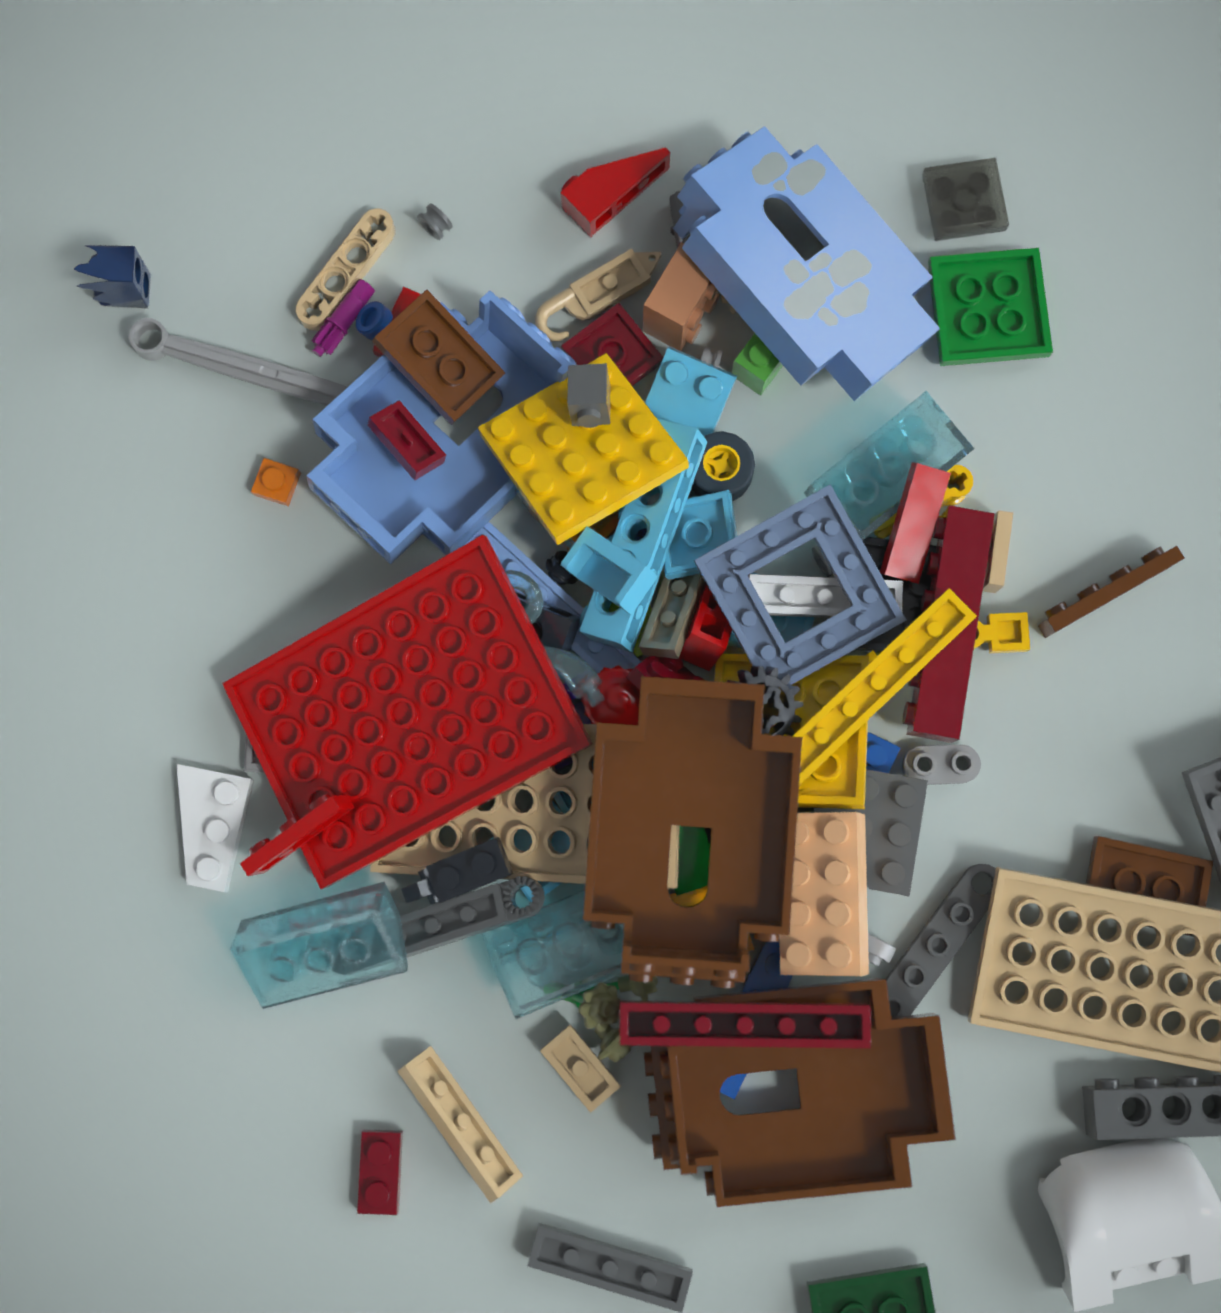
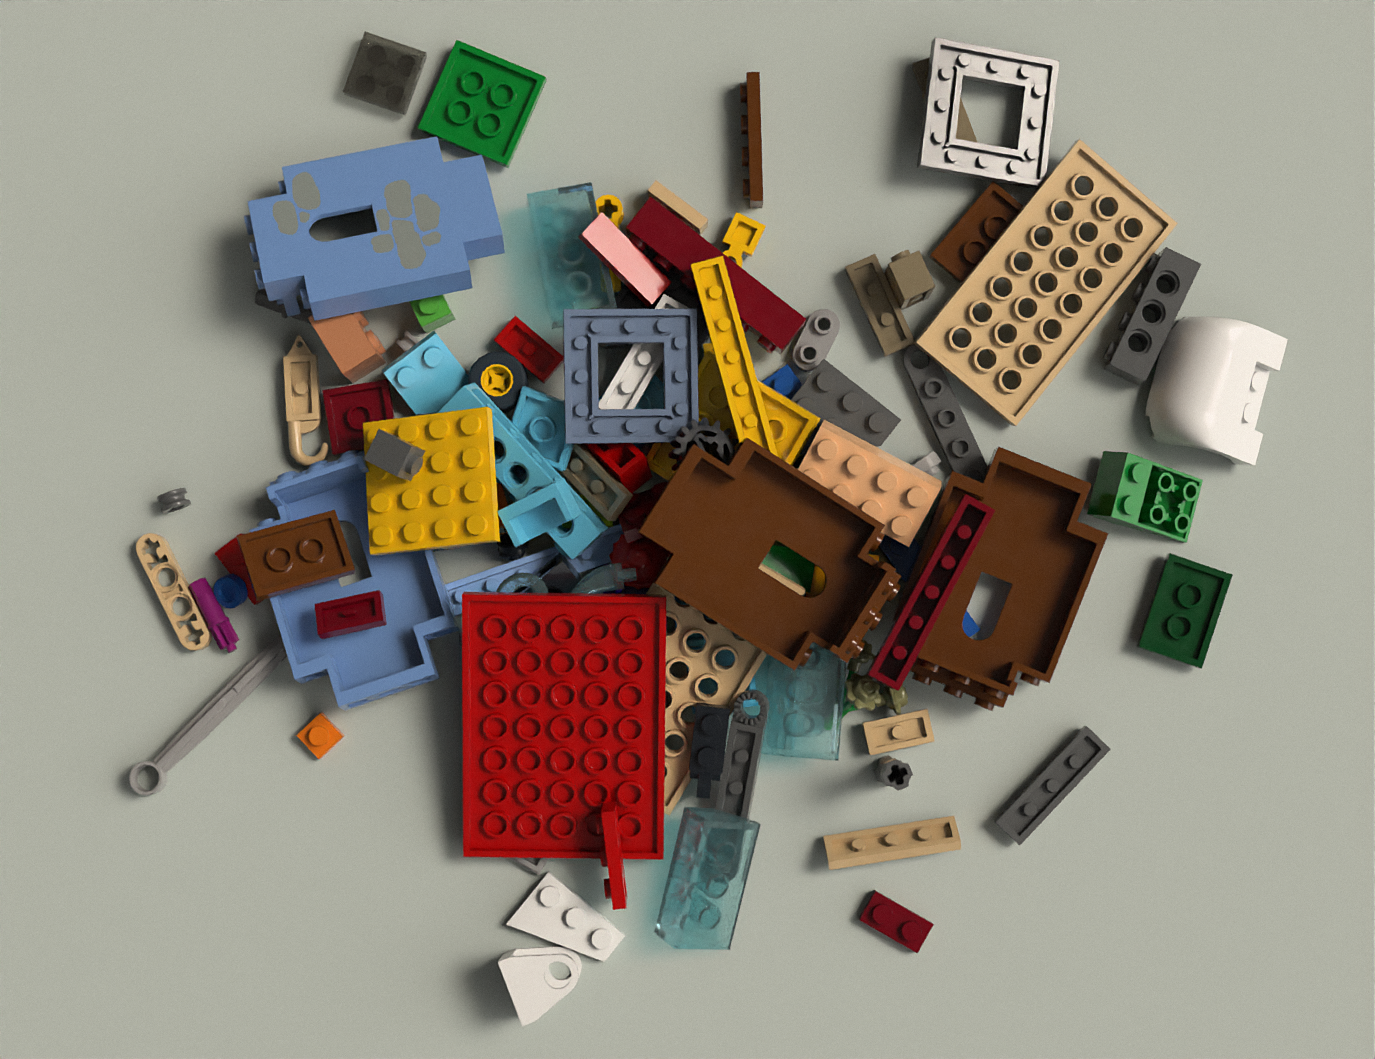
camera: 60 degrees left, 5 degrees up
(126, 276) = (84, 778): dark blue piece -> none
(127, 819) = (530, 980): none -> white hose
(531, 1098) = (901, 775): none -> dark grey axle
(608, 188) = (223, 350): red slope -> none
(770, 480) = (529, 349): none -> red plate
(973, 1204) = (1144, 496): none -> green slope
(1015, 811) = (879, 305): none -> dark tan plate
(1060, 825) = (909, 278): none -> dark tan brick

